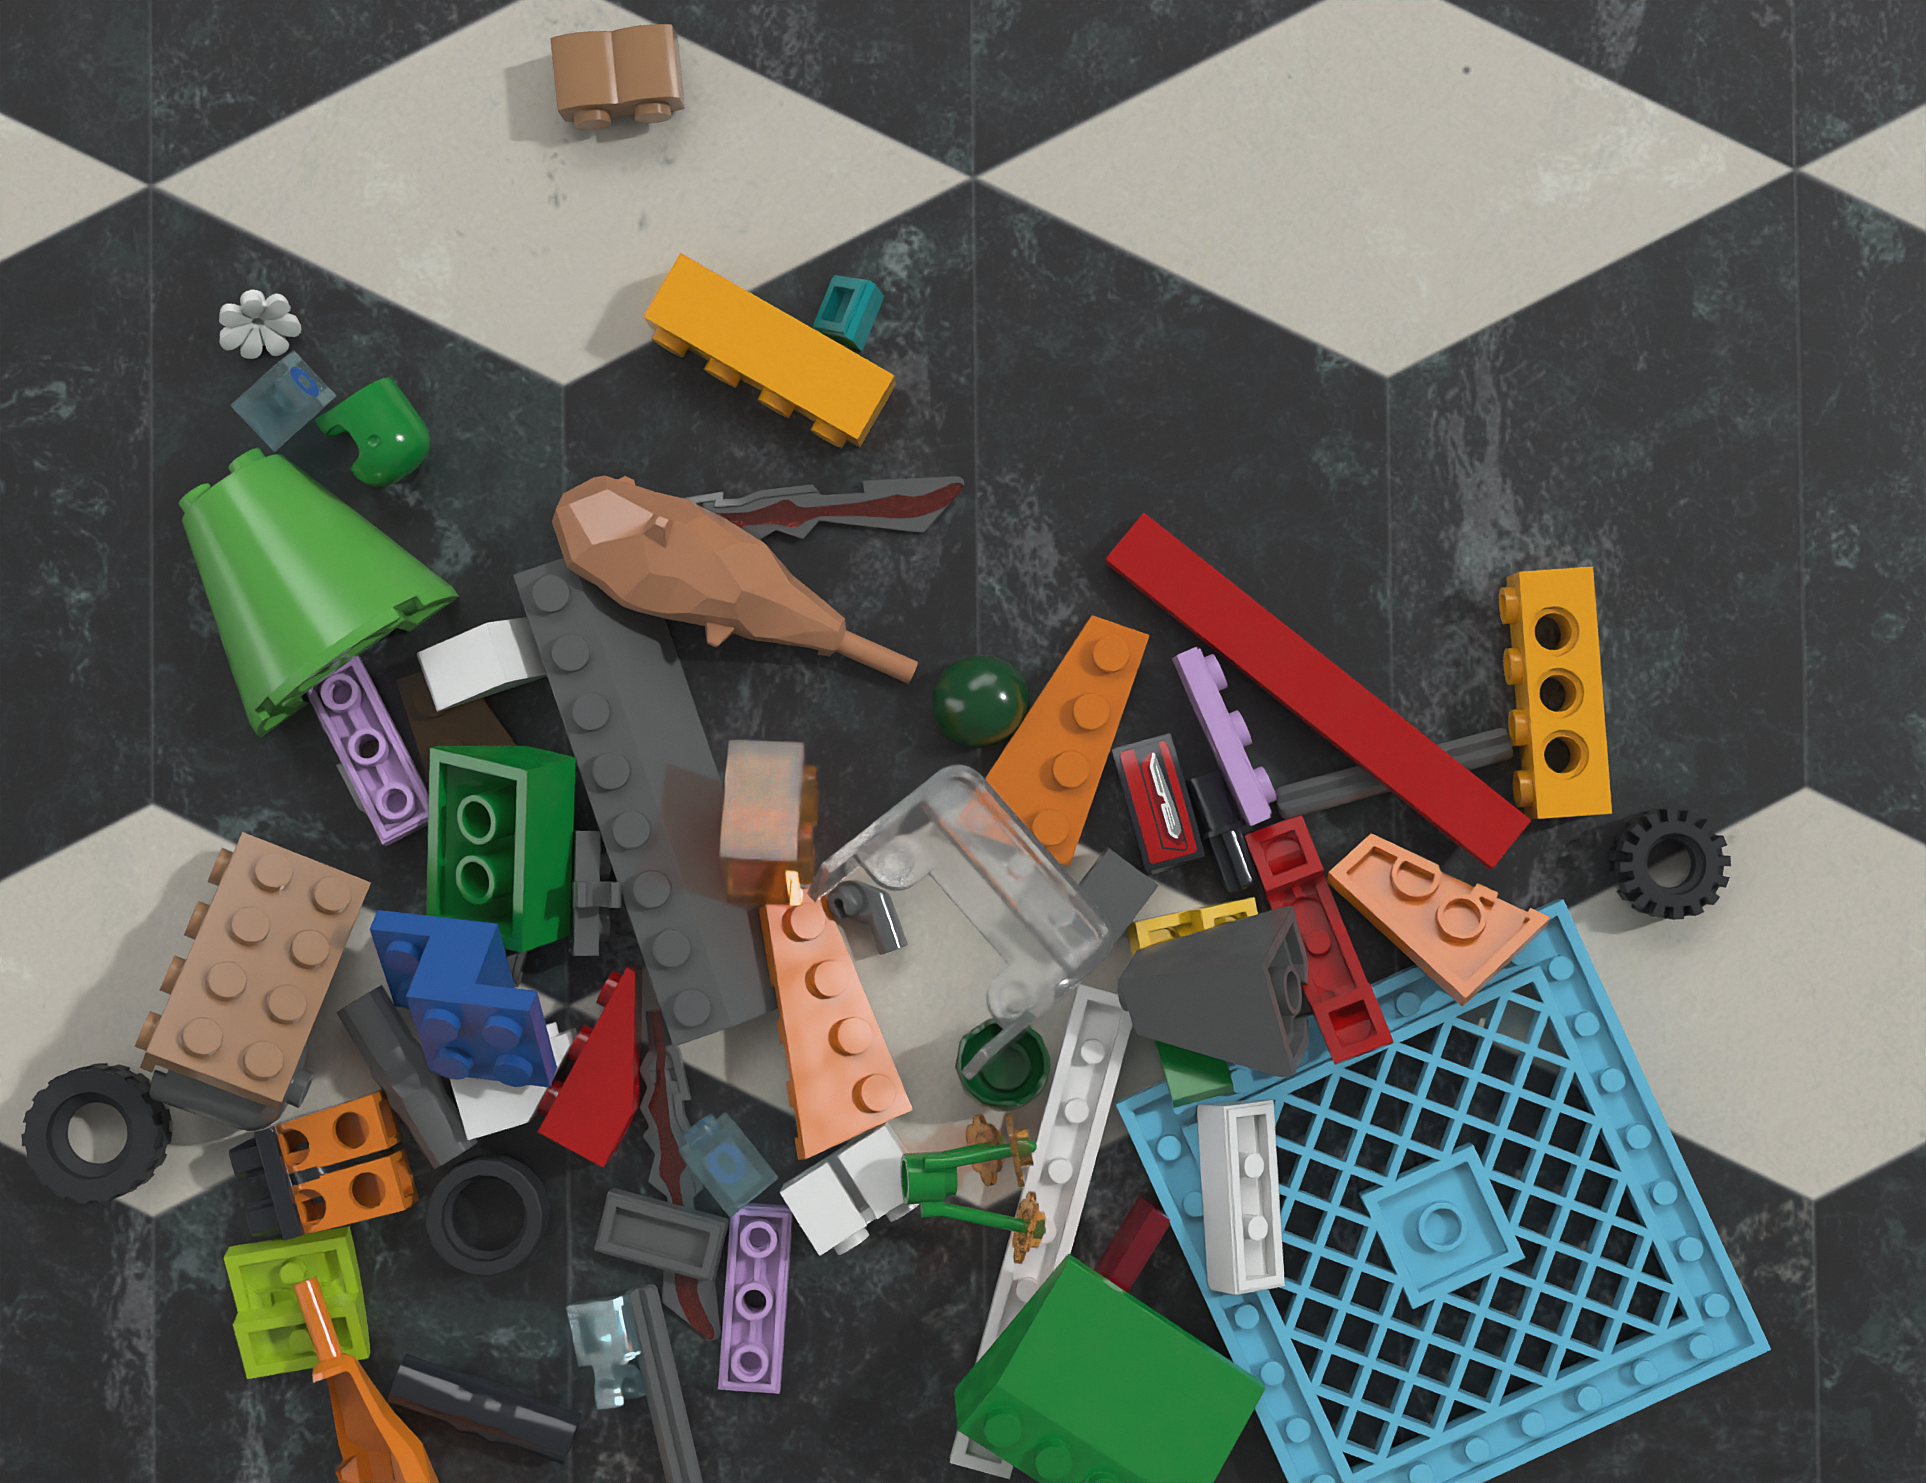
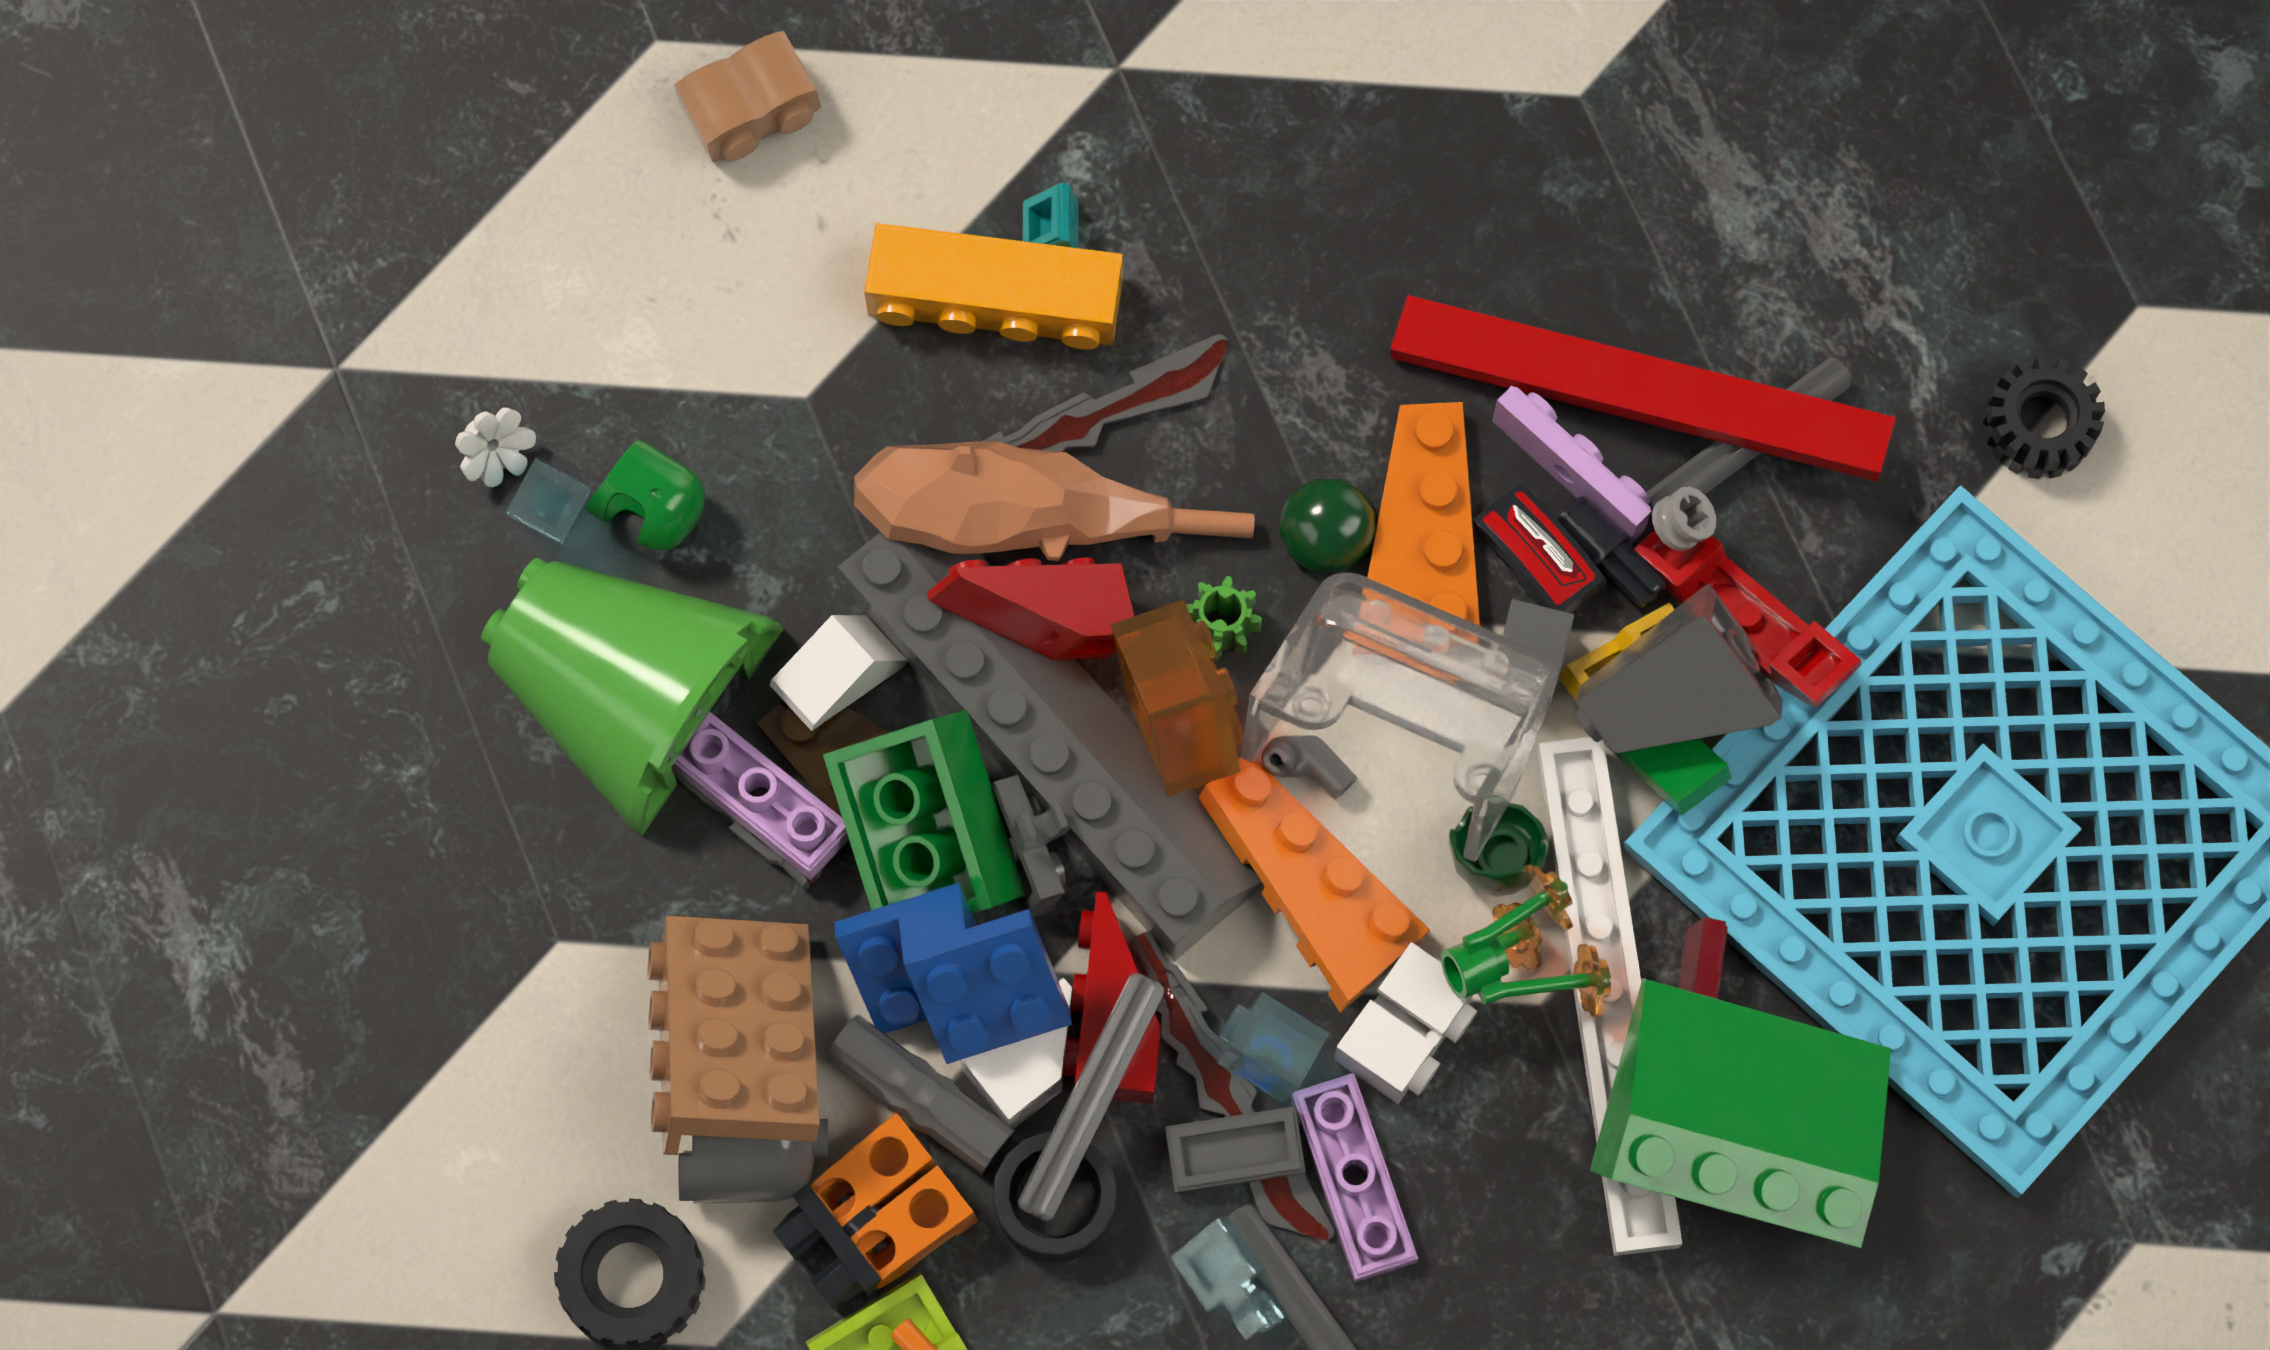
camera: 20 degrees left, 15 degrees down
(544, 1154) = (1091, 1096): none -> dark grey axle
(690, 691) = (1046, 608): none -> red slope
(856, 737) = (1226, 601): none -> bright green gear
(1240, 1196) = (1782, 876): white slope -> none
(1311, 832) = (1684, 518): none -> light grey bush
(1442, 924) = (1859, 550): orange wing -> none
(1570, 601) = (1838, 219): light orange brick -> none

